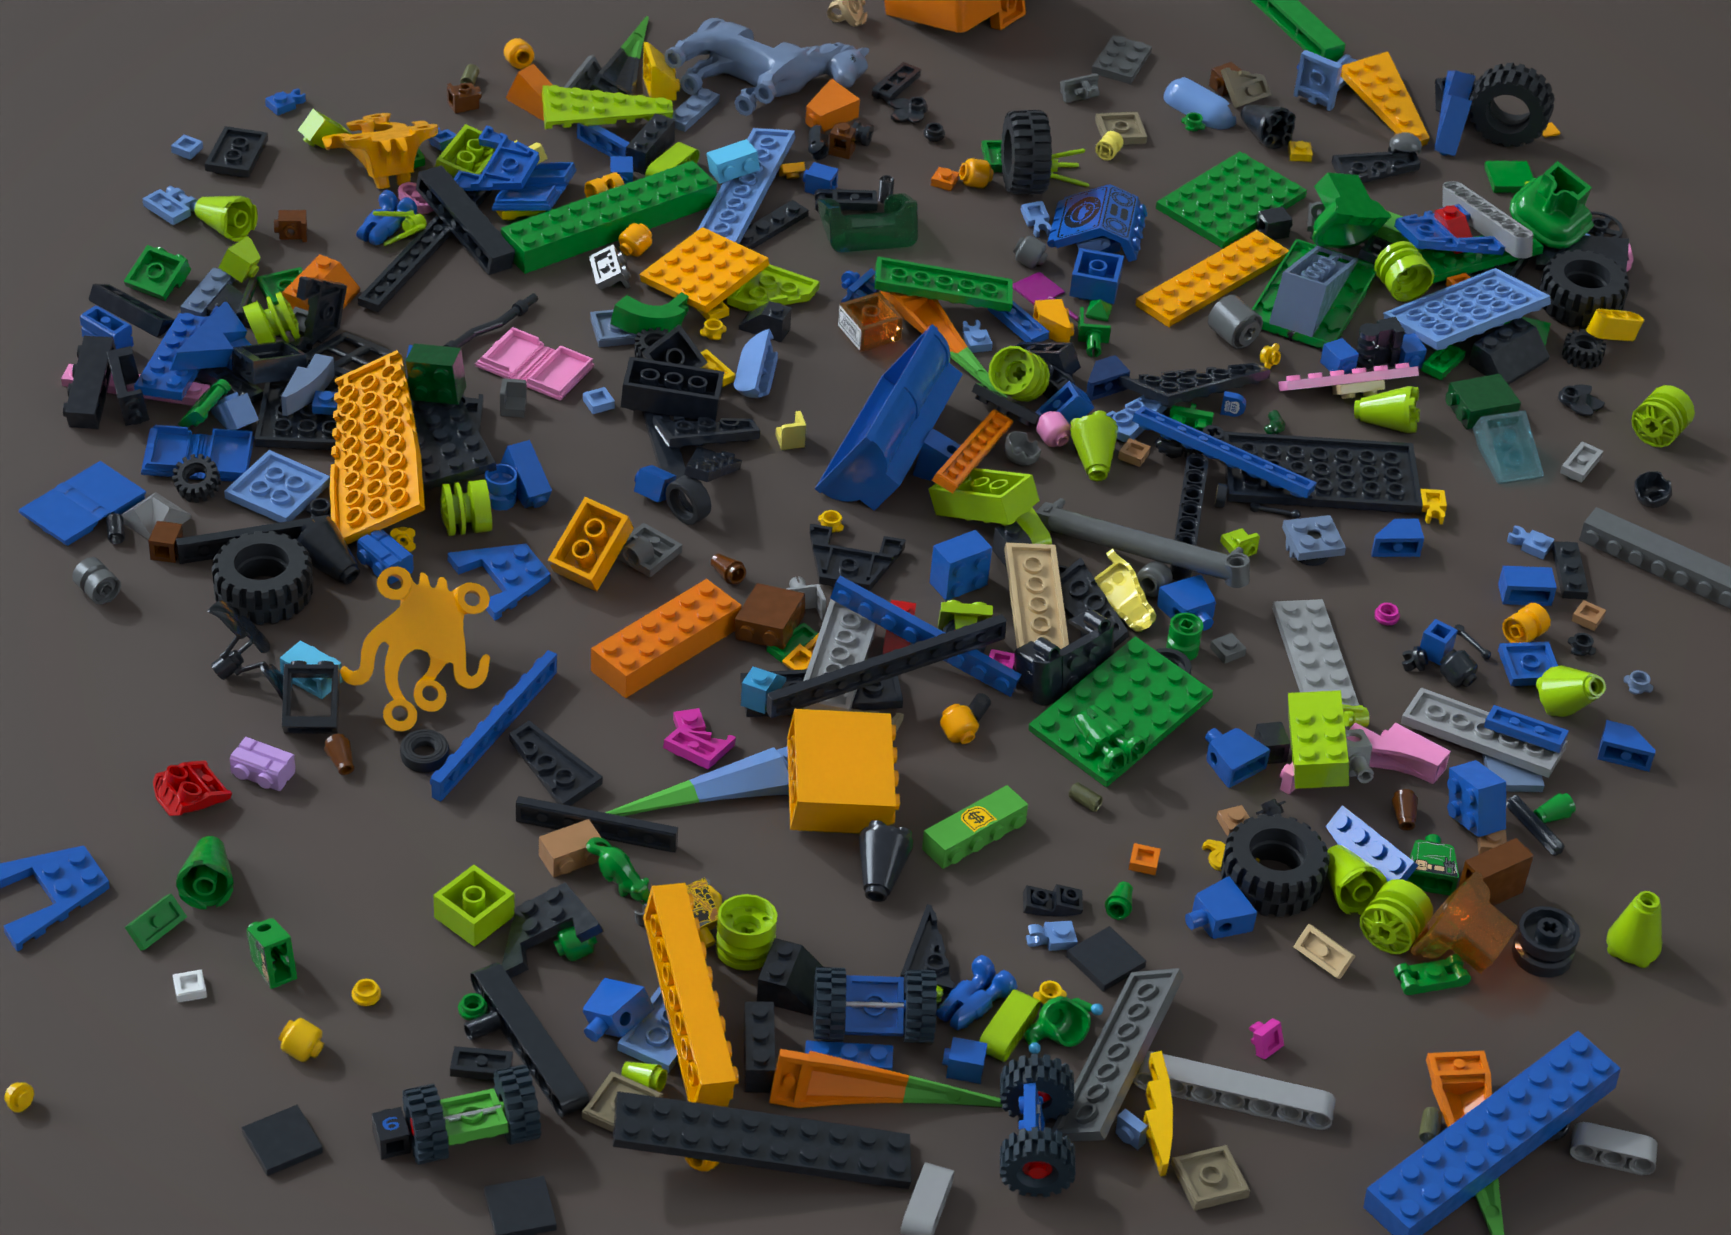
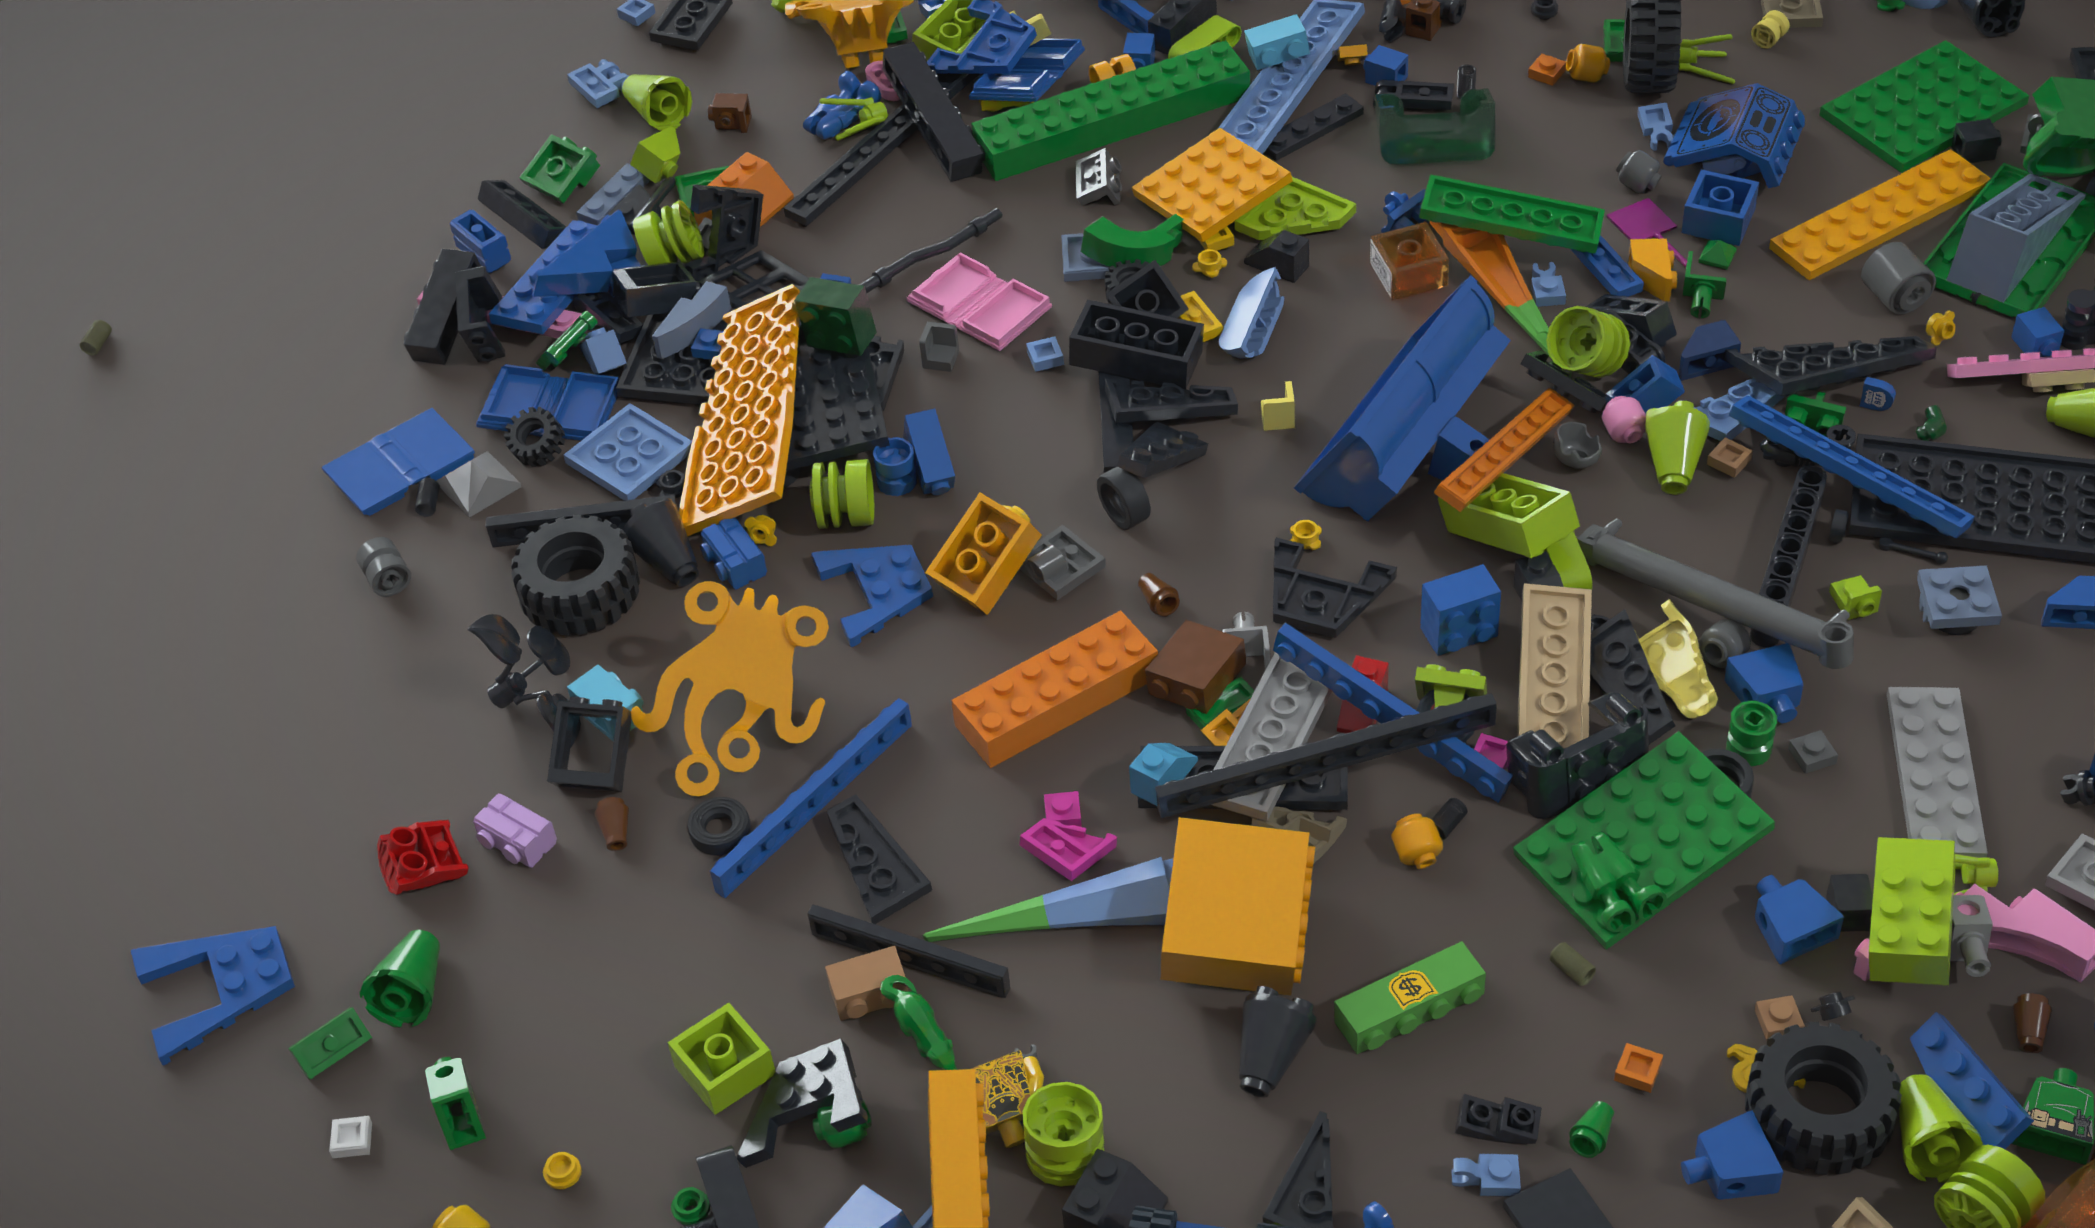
camera: 20 degrees right, 5 degrees up
(163, 541) = (472, 515): reddish brown brick -> none
(635, 239) = (1136, 141): light orange head -> none
(653, 482) = (1083, 469): blue brick -> none
(1300, 151) = (2028, 41): yellow plate -> none
(1387, 614) = (2049, 716): dark pink plate -> none

